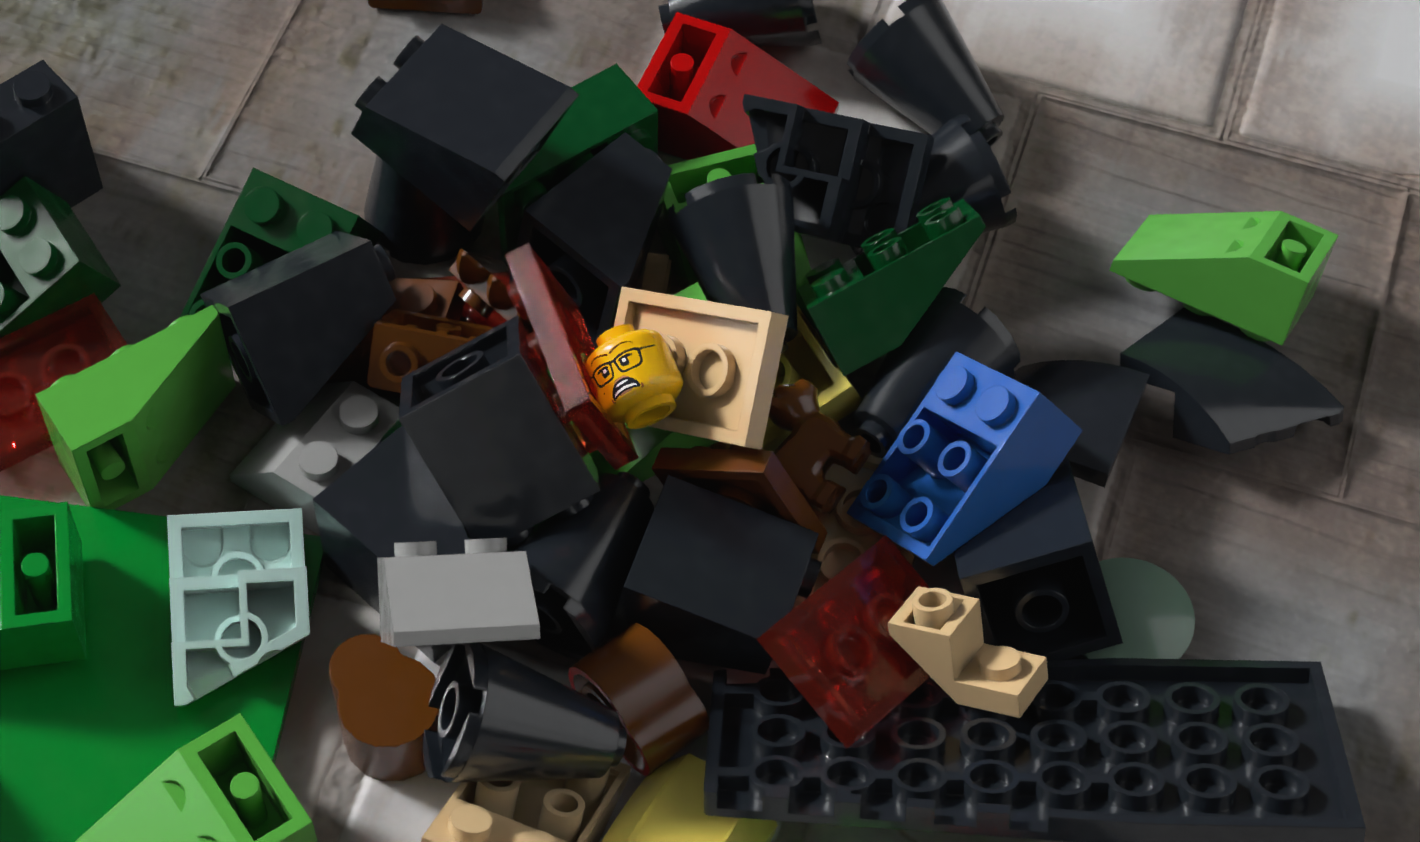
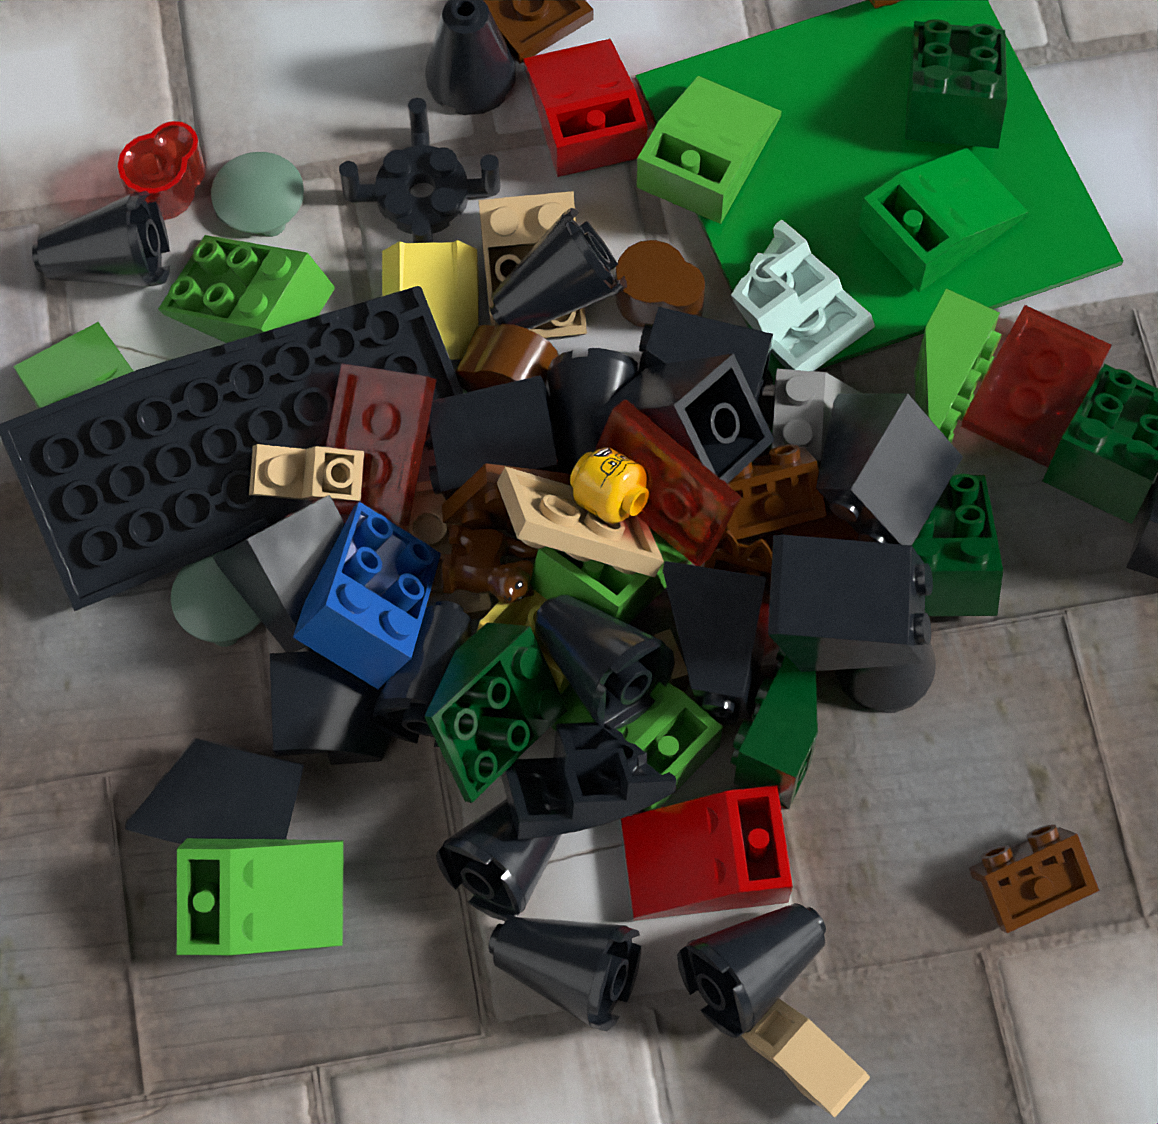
camera: 155 degrees right, 10 degrees up
(456, 596) = (626, 282): light grey slope -> none

